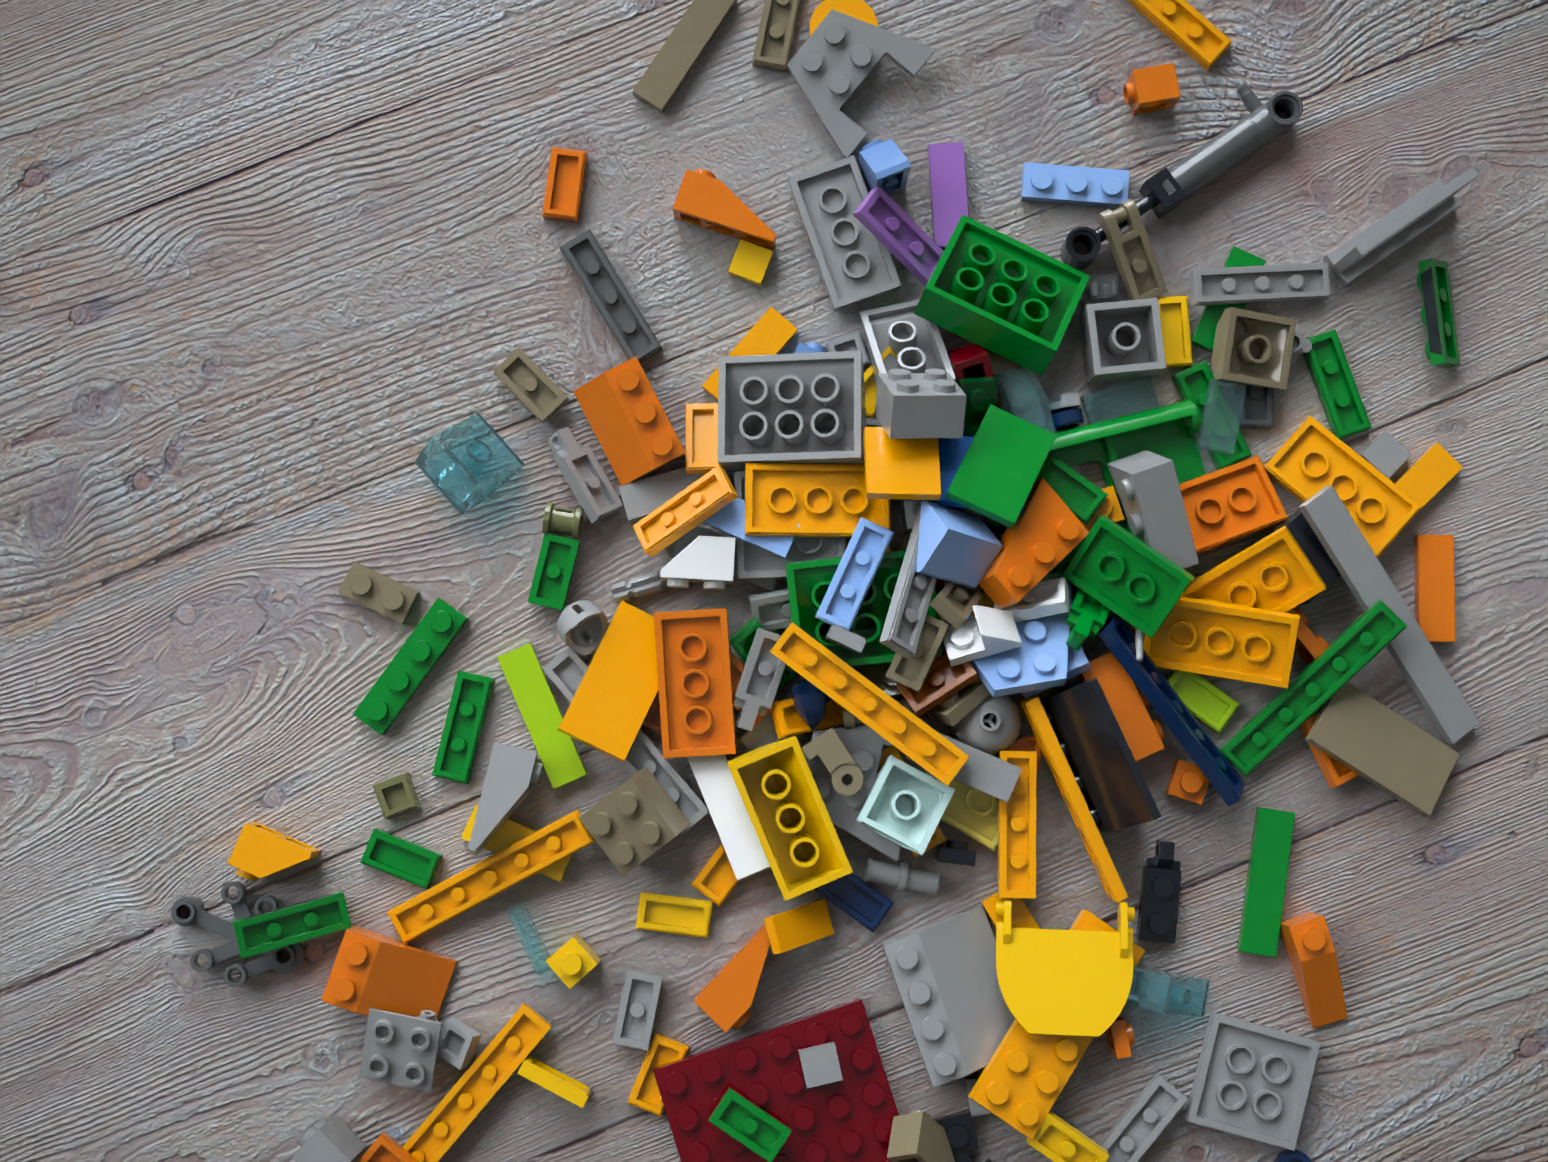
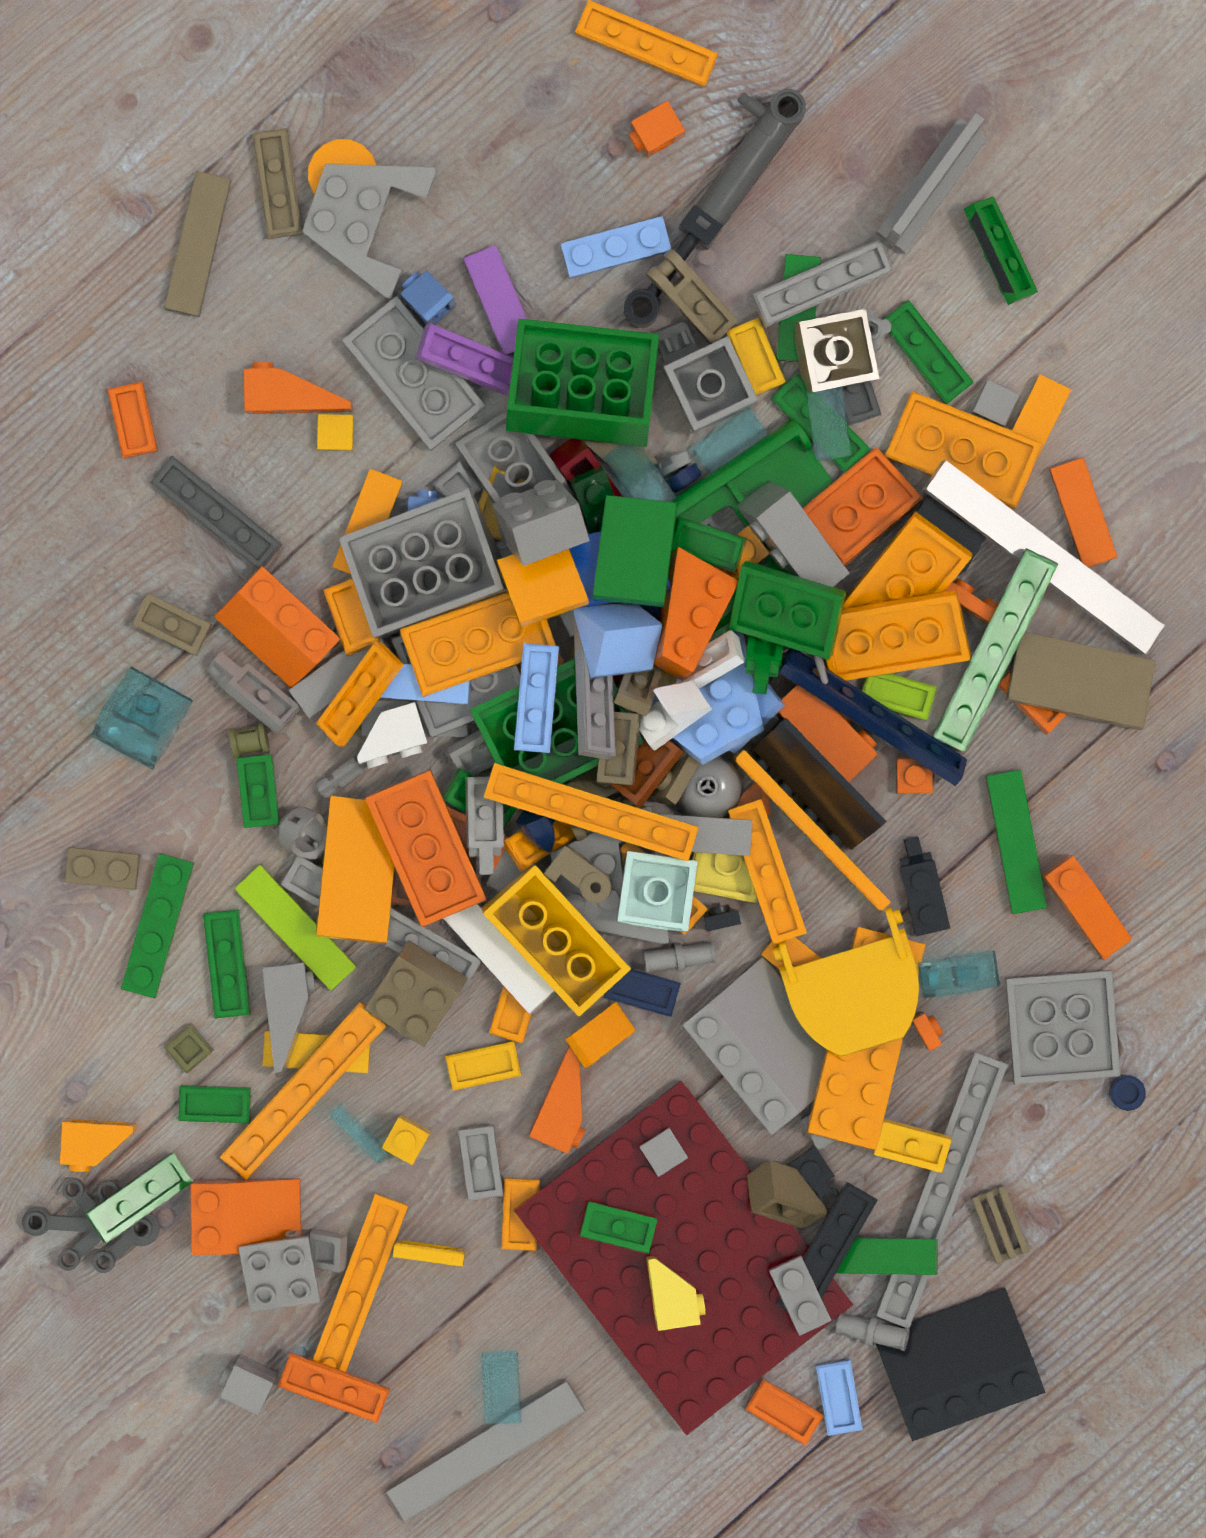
camera: 25 degrees left, 5 degrees up
(845, 639) = (549, 760): light grey tile -> none

